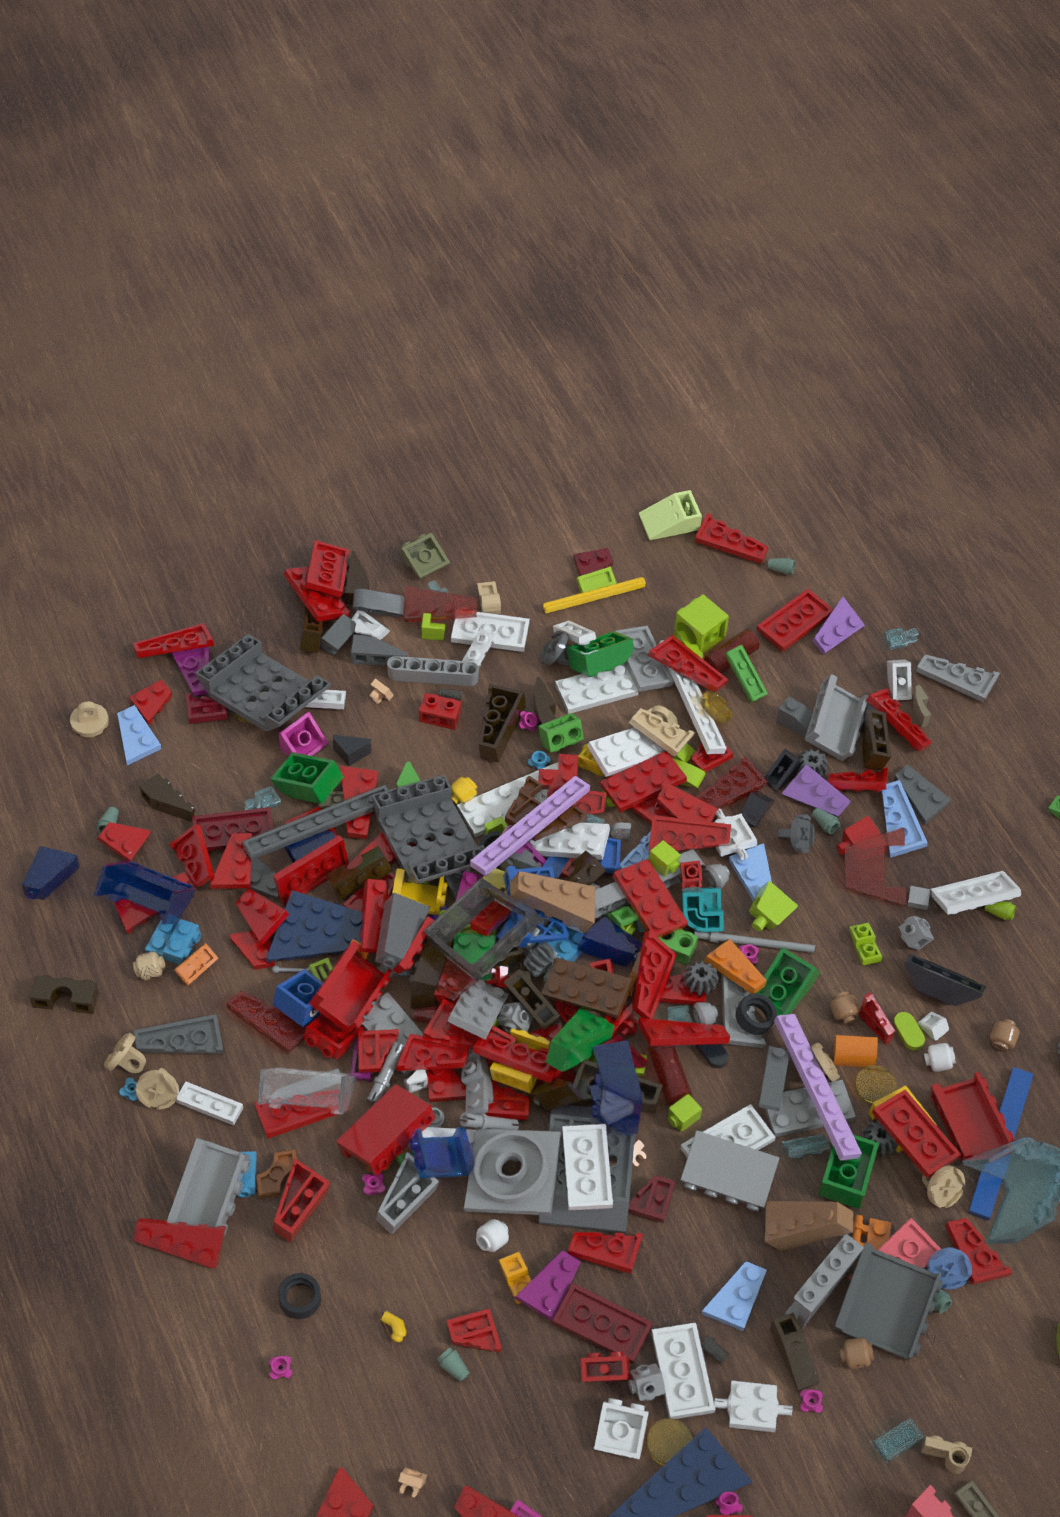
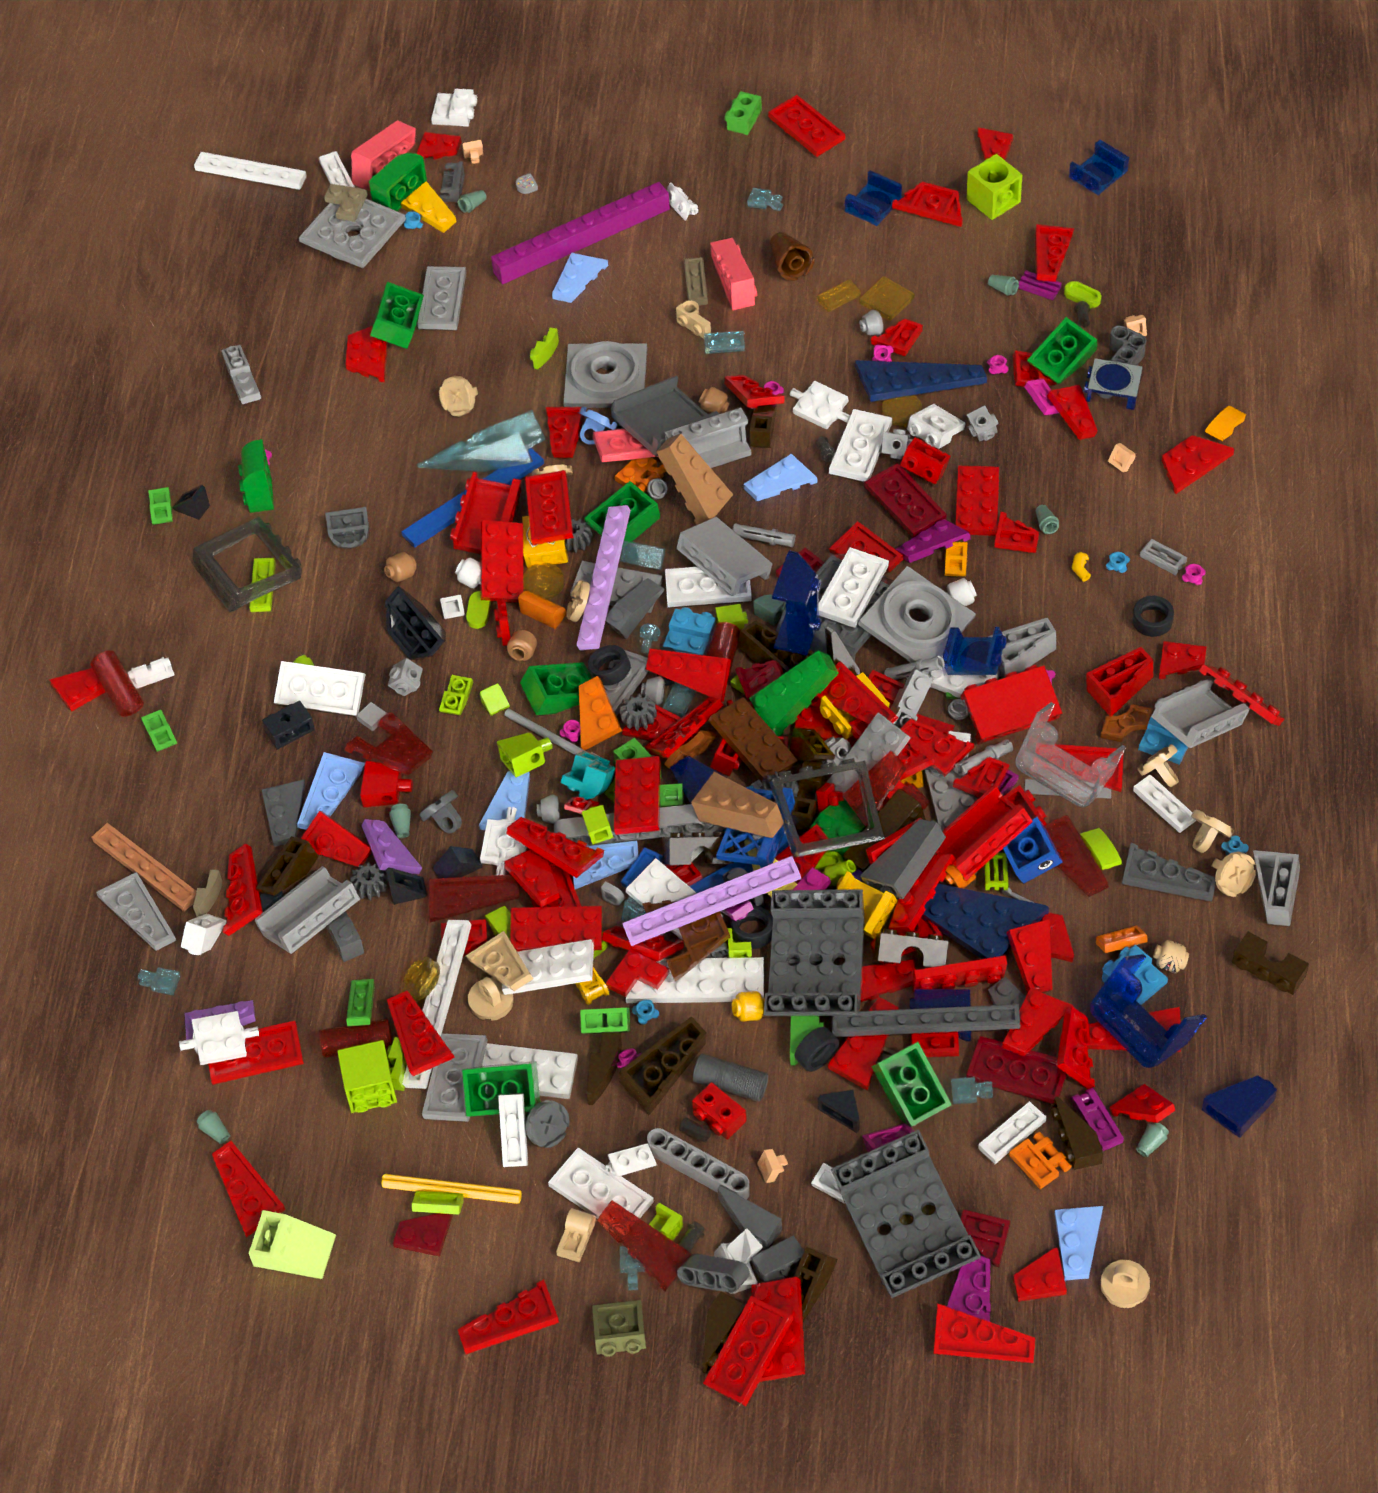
camera: 145 degrees left, 0 degrees up
(81, 1061) = (1278, 884): none -> light grey wedge
(156, 819) = (1097, 1118): none -> magenta plate
(190, 769) = (1035, 1164): none -> orange plate
(216, 784) = (1012, 1132): none -> white plate
(228, 1129) = (1159, 762): none -> tan tile
(247, 1035) = (1101, 849): none -> lime slope
(254, 1264) = (1181, 658): none -> red wing
(319, 1386) = (1161, 559): none -> light grey tile
(362, 1341) = (1118, 562): none -> dark azure plate
(391, 771) = (816, 1049): none -> black tyre
(409, 631) = (692, 1235): none -> clear smoke pin
(443, 734) = (733, 1077): none -> dark grey piece
(497, 537) = (521, 1316): none -> red wing
(534, 1361) = (977, 499): none -> red plate
(574, 1449) = (982, 424): none -> light grey brick
(656, 1141) = (769, 609): none -> sand green brick
(711, 1220) = (787, 539): none -> light grey pin
(712, 1087) = (690, 631): none -> dark azure plate
(744, 1068) = (649, 633): none -> clear light blue plate
(822, 606) = (218, 1038): none -> white plate
(826, 1375) = (750, 392): none -> red wing
(831, 953) = (494, 699): none -> slope
(920, 1071) = (501, 560): none -> red plate
(975, 856) = (288, 724): none -> black brick
(979, 1368) = (598, 390): none -> light grey piece
(983, 707) = (146, 867): none -> nougat plate

